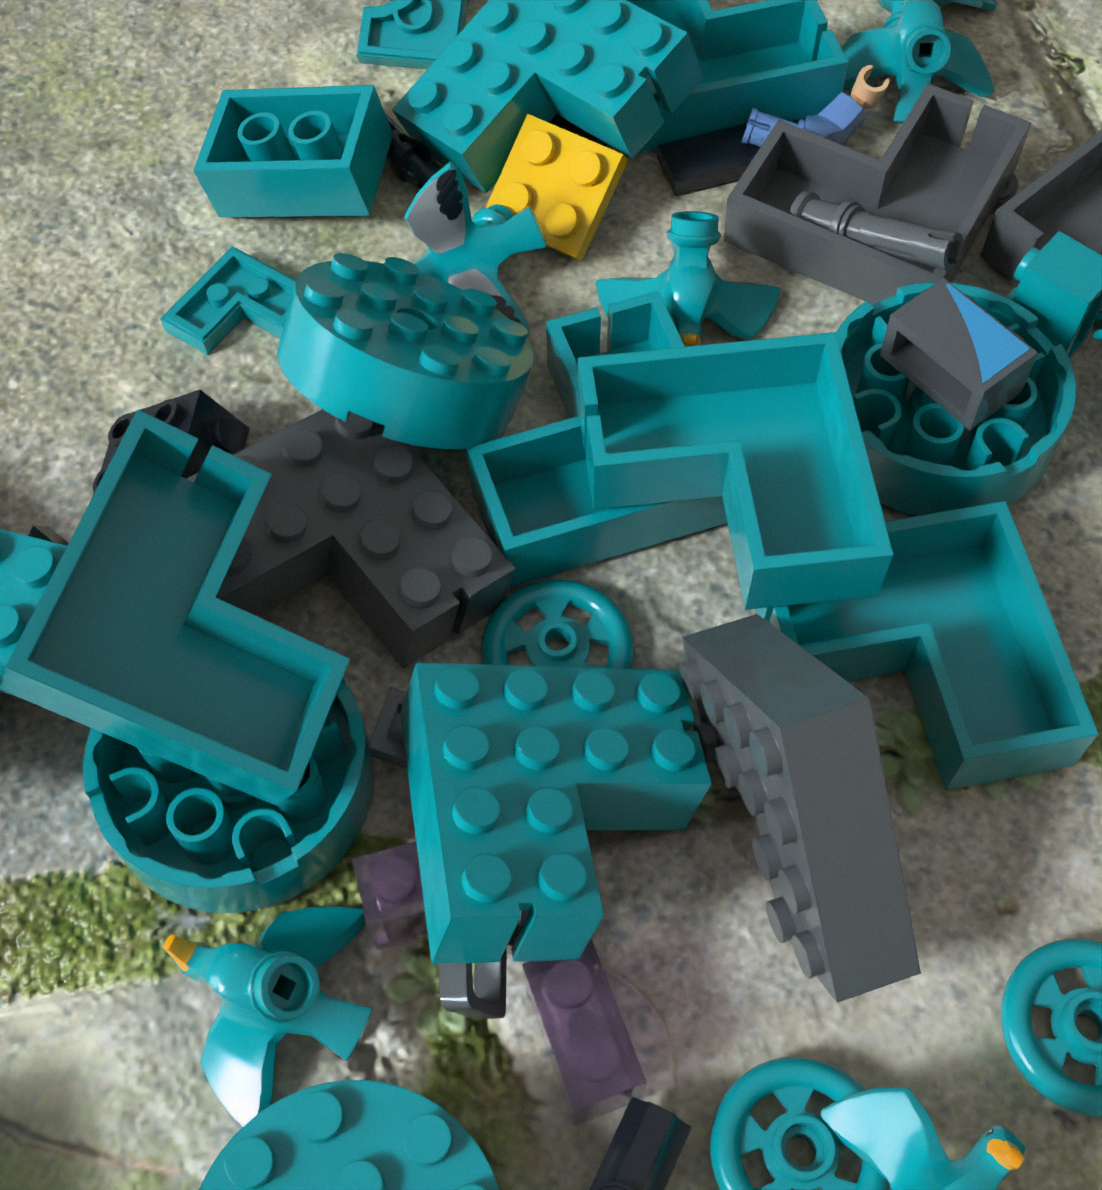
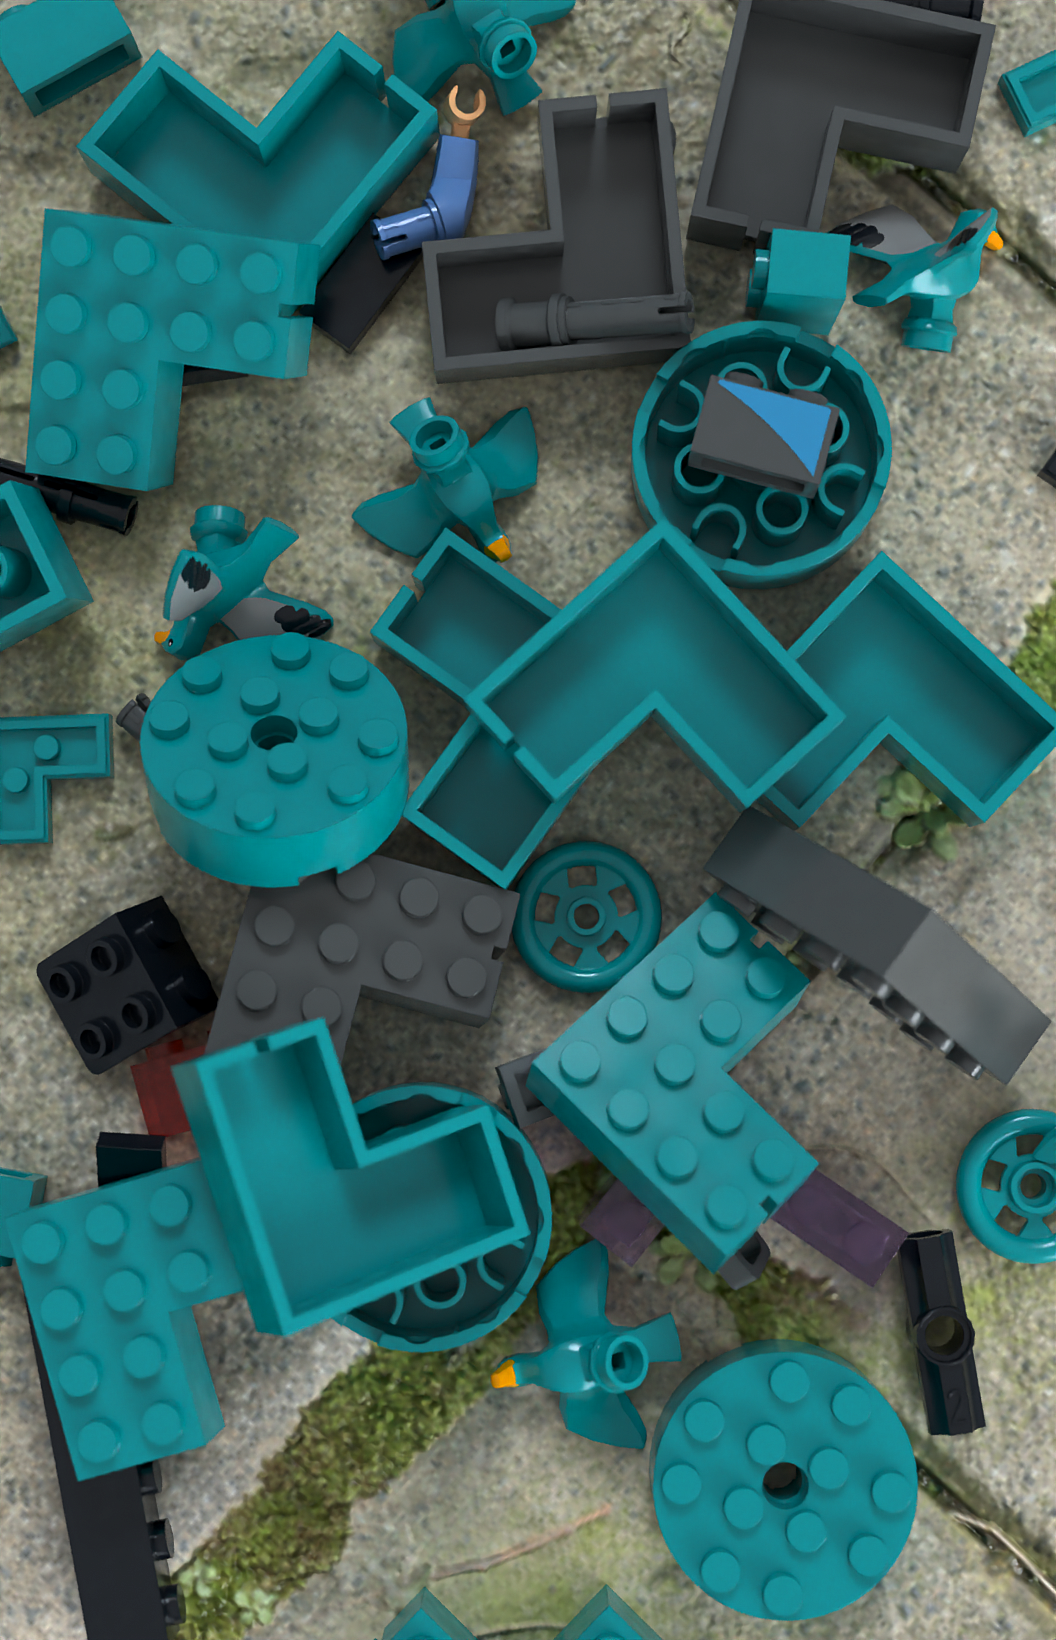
camera: 35 degrees left, 25 degrees up
(562, 181) = (246, 445): yellow plate -> none

